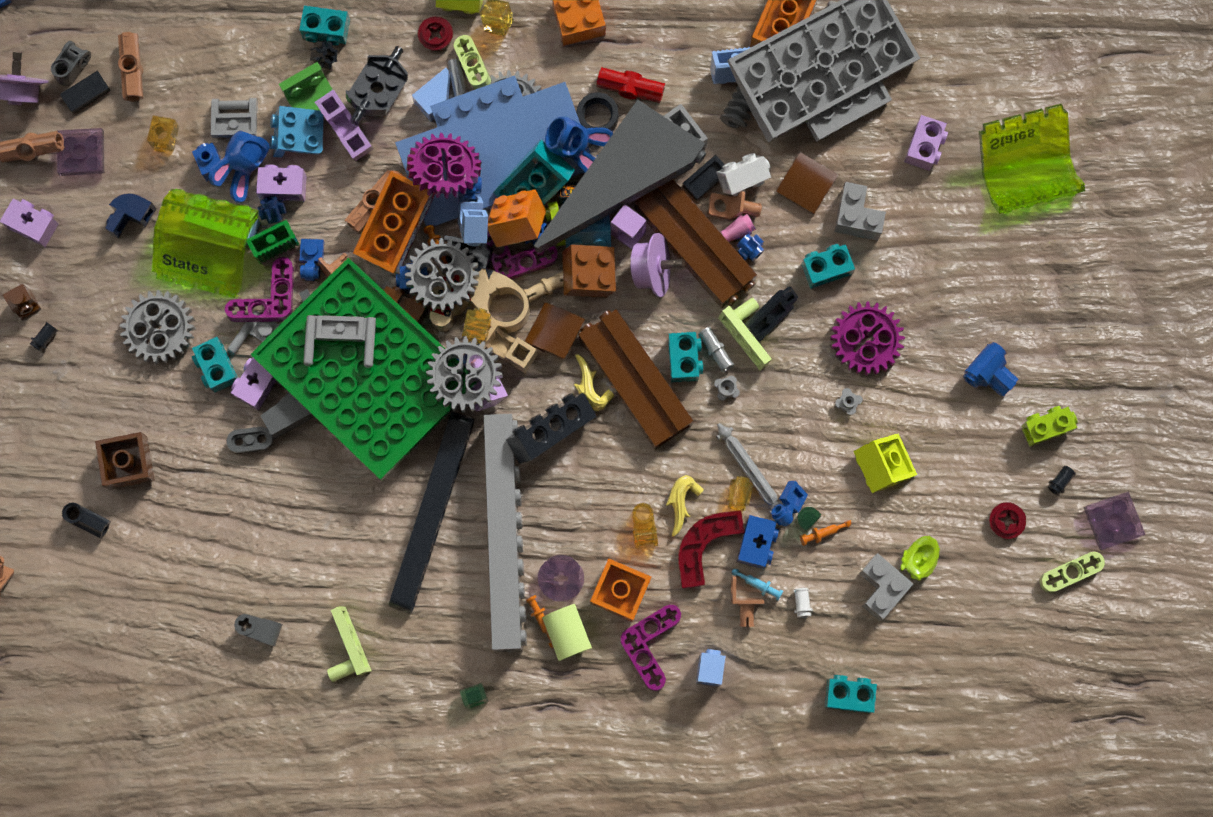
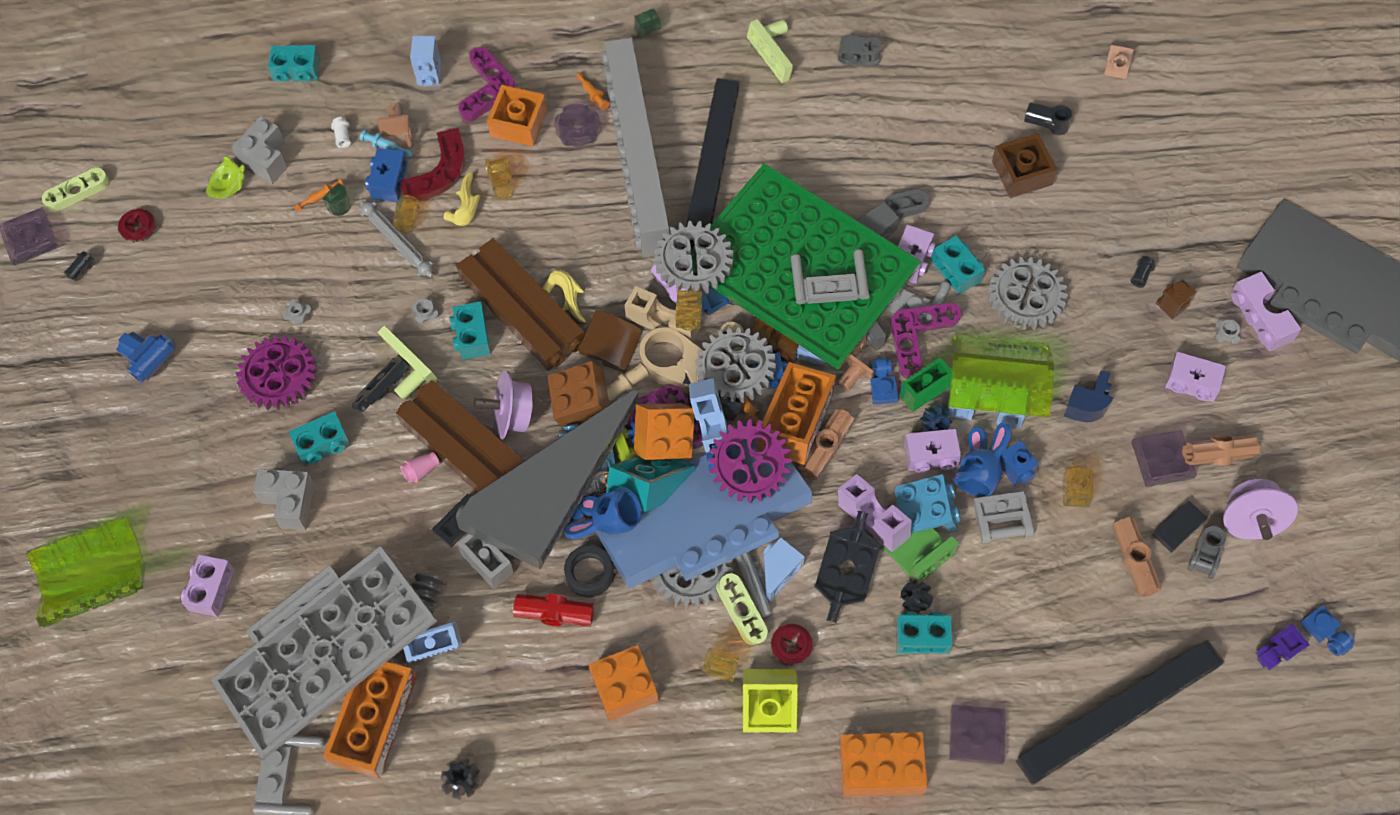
camera: 175 degrees right, 15 degrees down
(527, 448) = (599, 233): black brick -> none
(566, 632) = (566, 79): yellowish green brick -> none
(628, 226) = (536, 437): lavender panel -> none
(716, 349) = (437, 343): light grey pin -> none
(734, 206) = (425, 489): nougat bracket -> none
(744, 174) = (414, 519): white brick -> none
(750, 247) = (405, 445): blue gear -> none
(793, 500) = (353, 212): blue plate -> none
(807, 182) = (344, 526): reddish brown slope -> none
(884, 463) = (258, 257): neon yellow slope -> none
(1049, 426) = (86, 308): lime brick -> none

